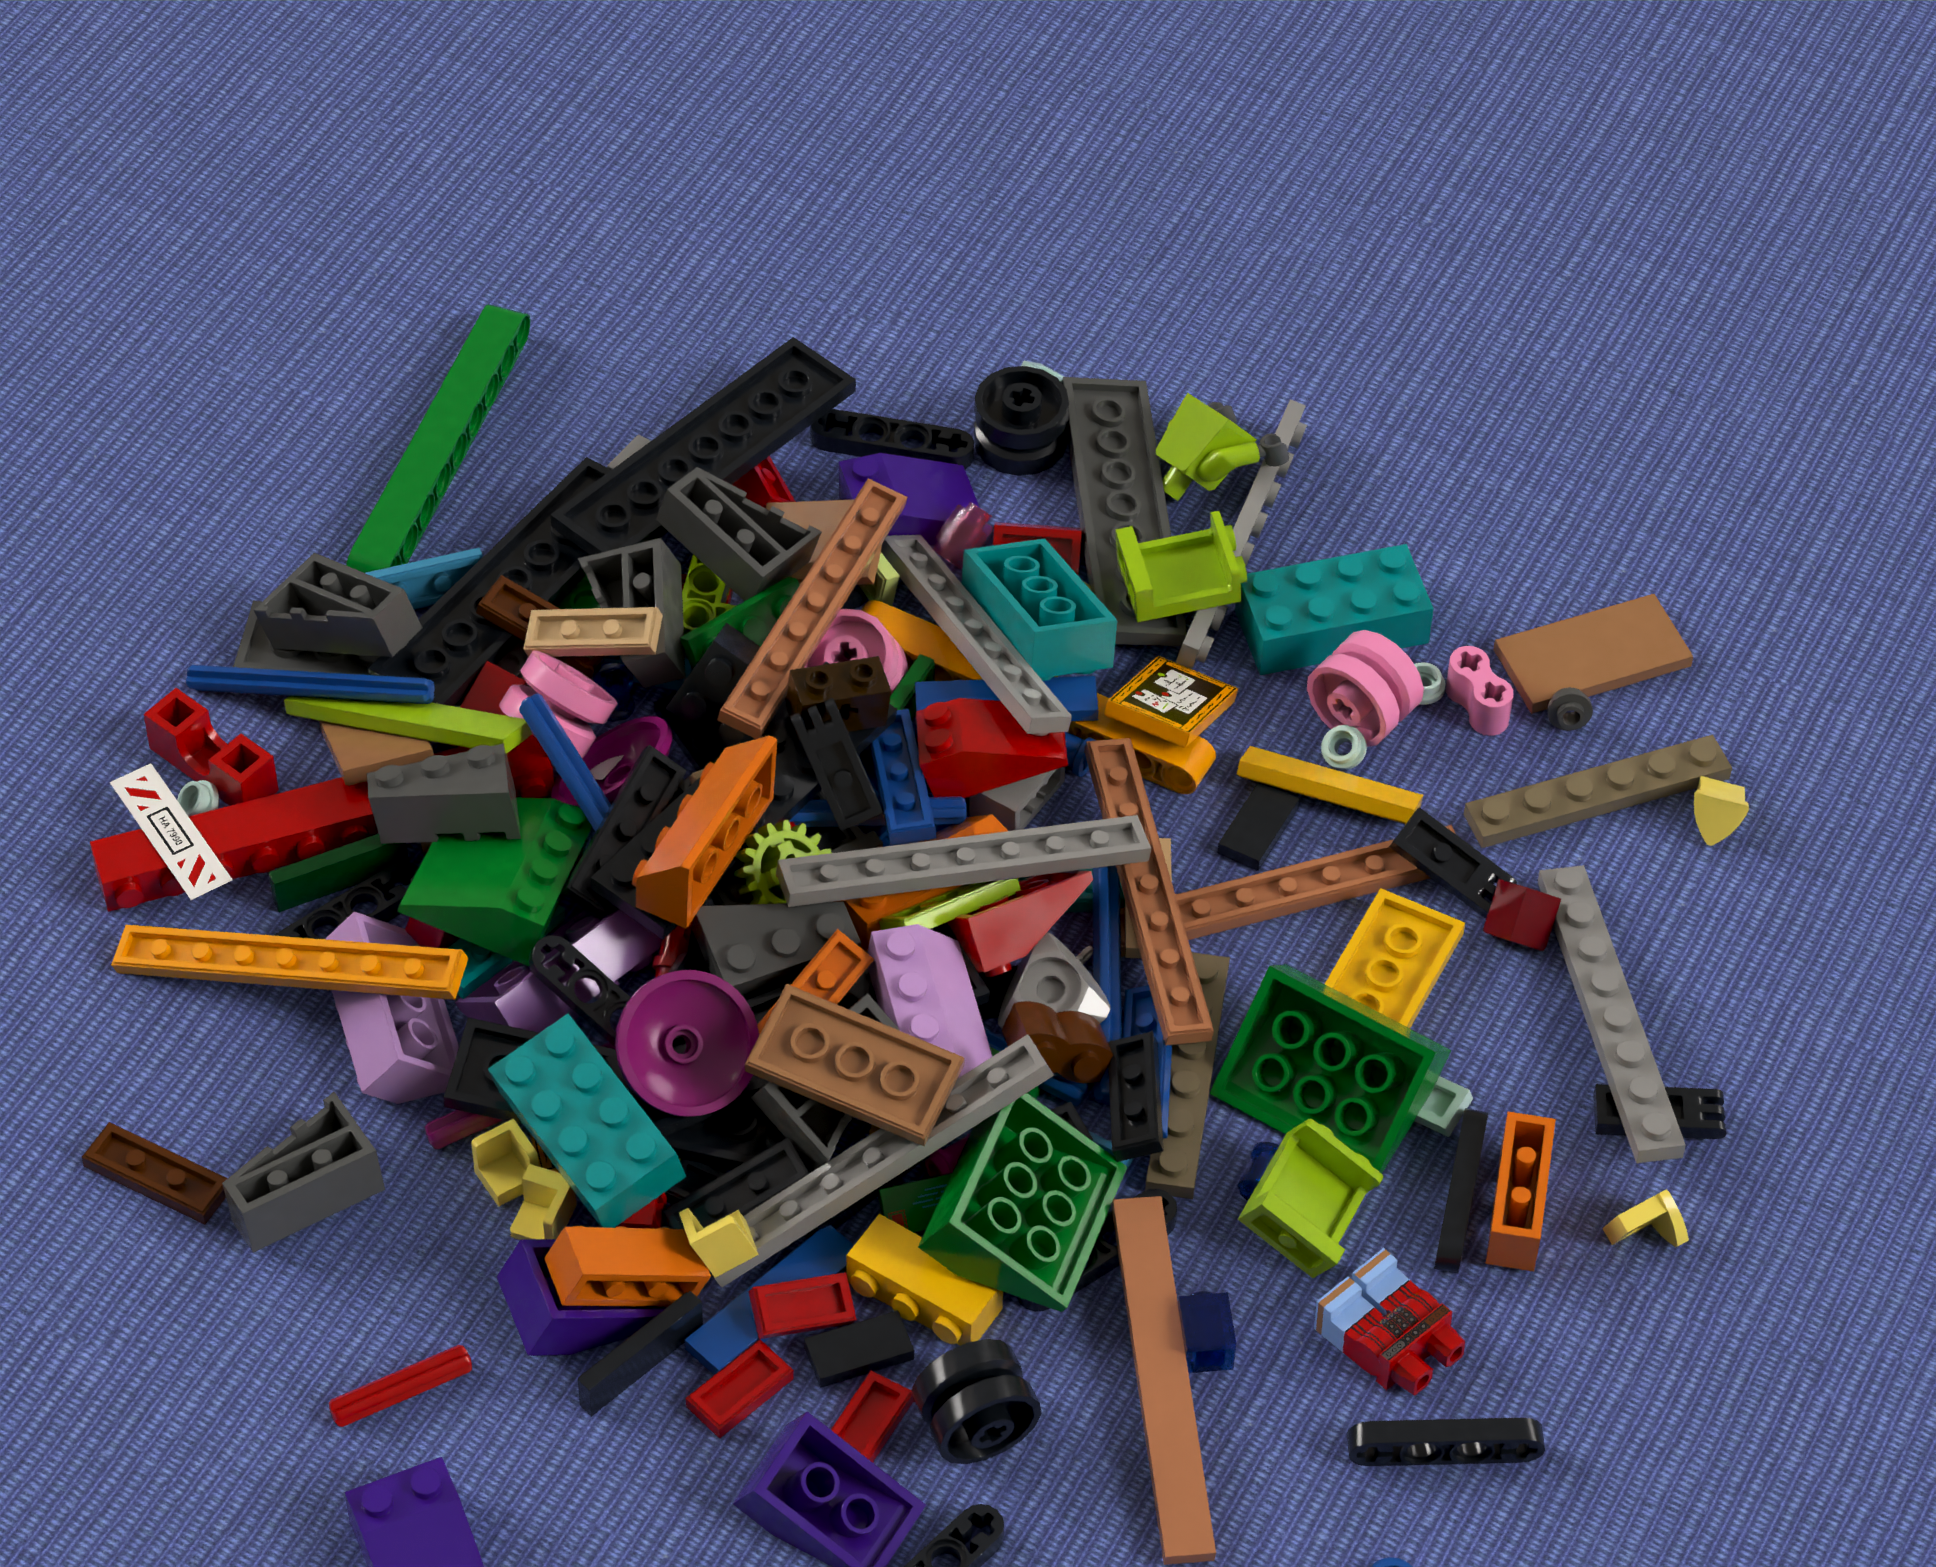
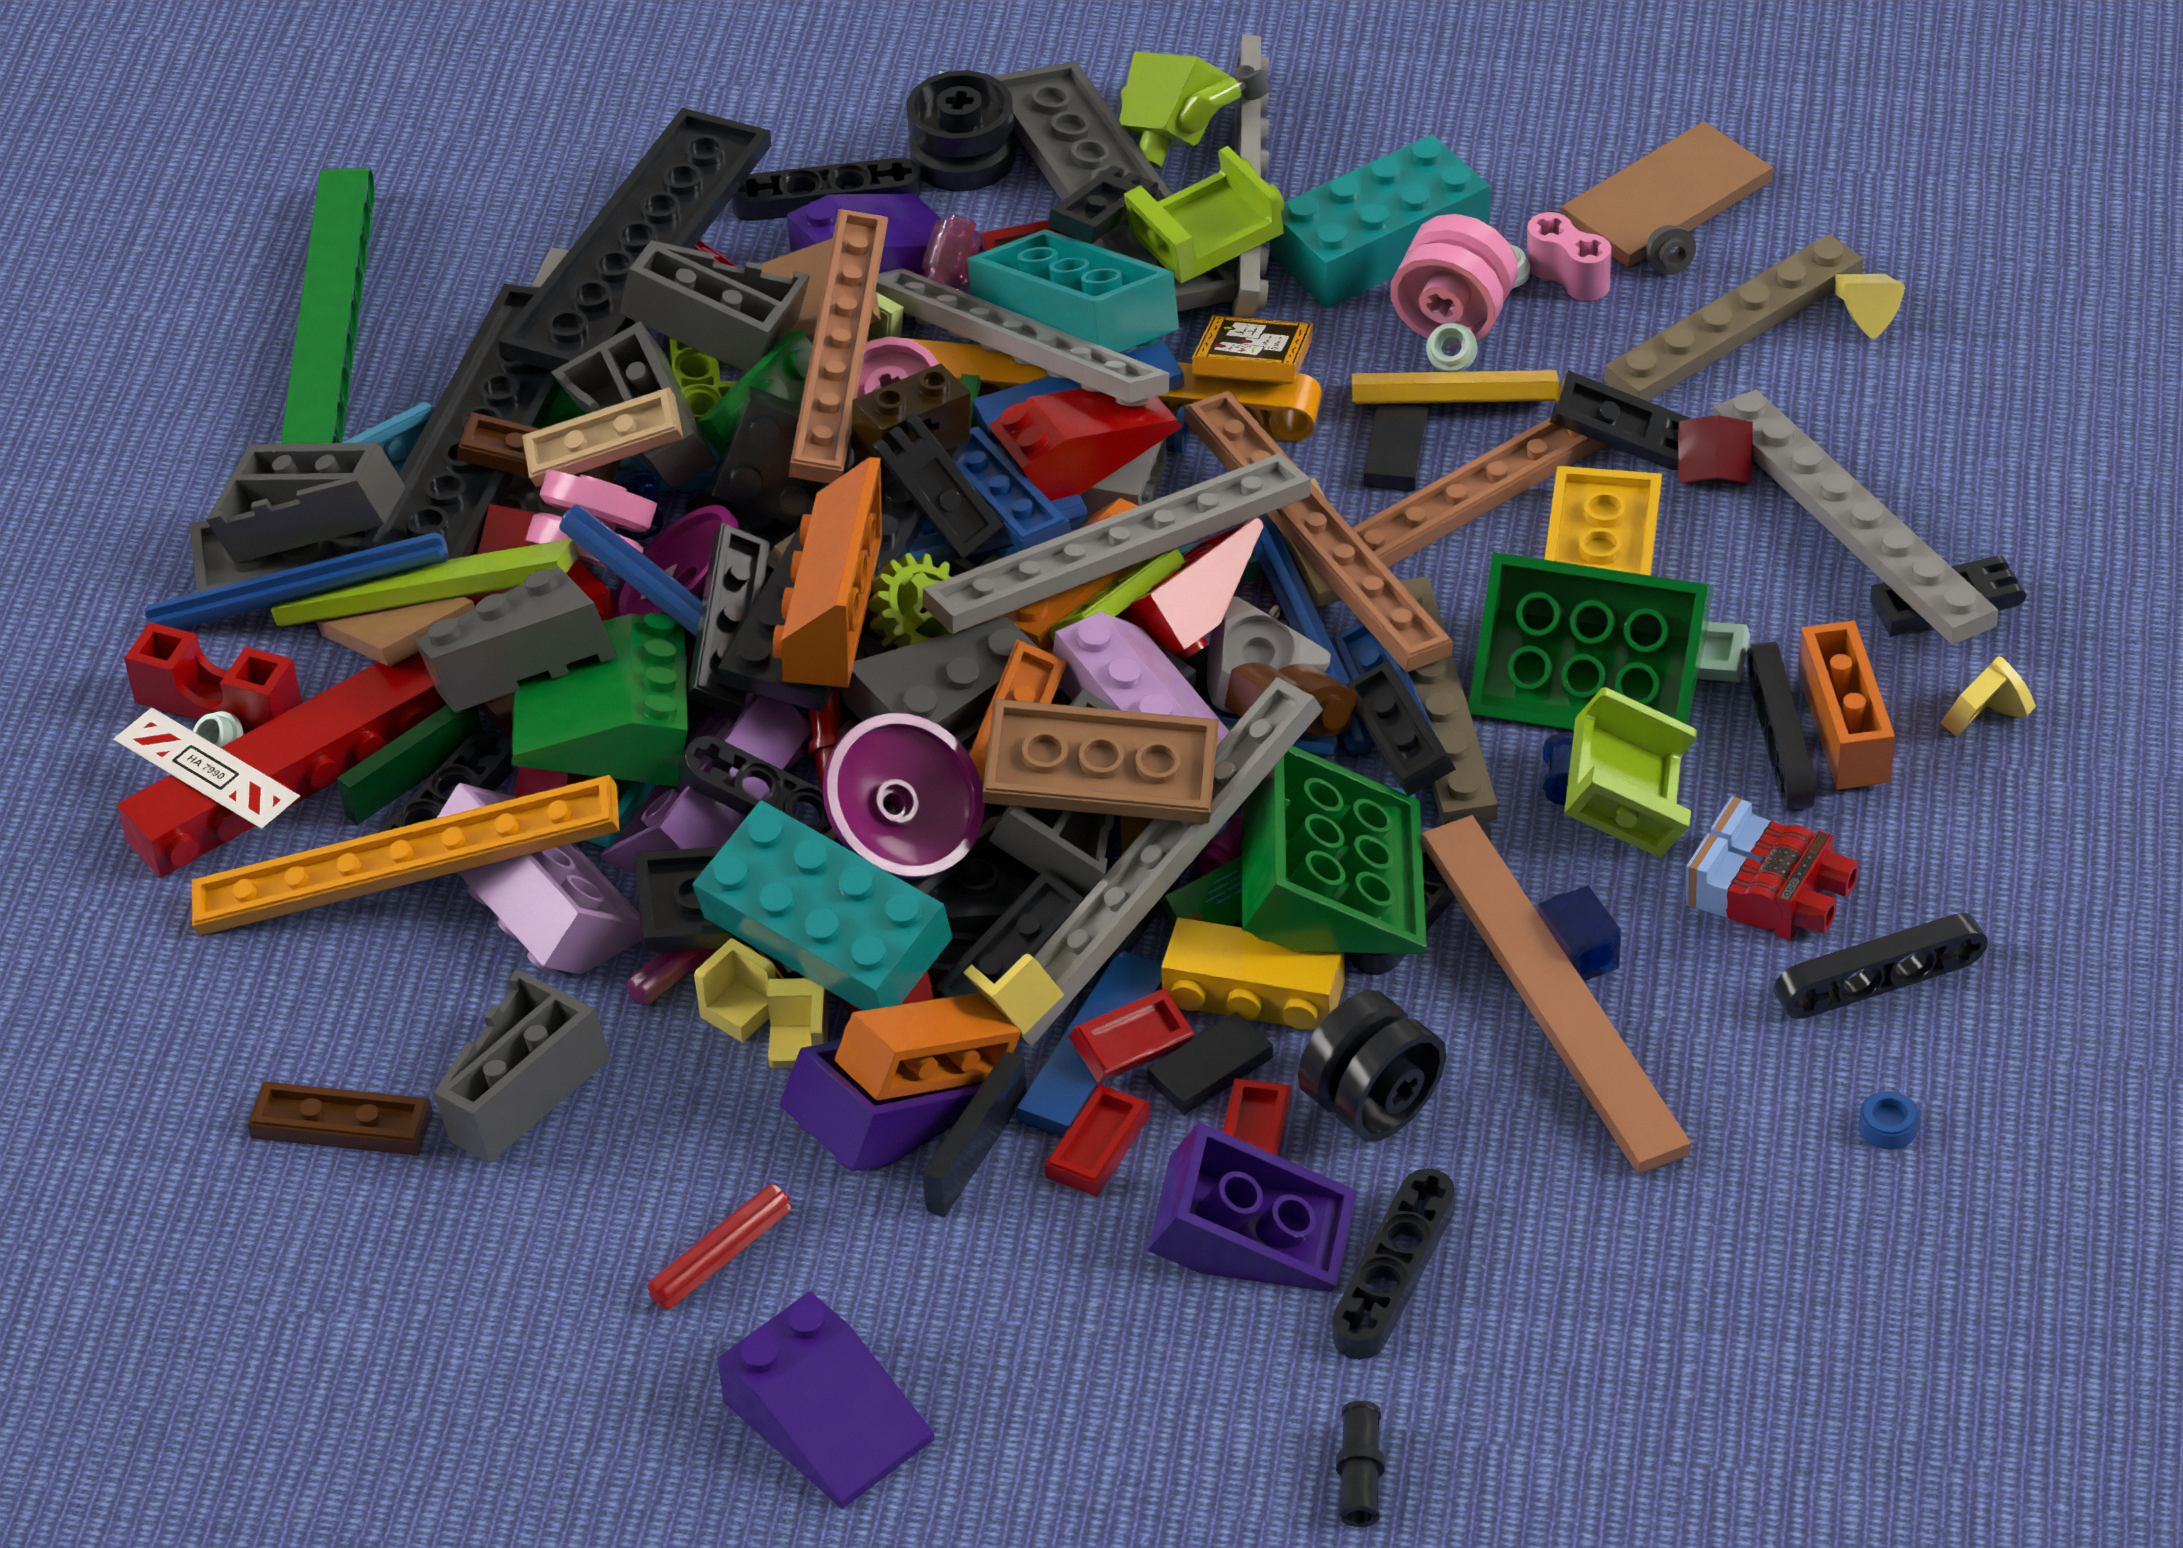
camera: 15 degrees left, 5 degrees down
(1094, 530) = (1097, 205): none -> black hinge

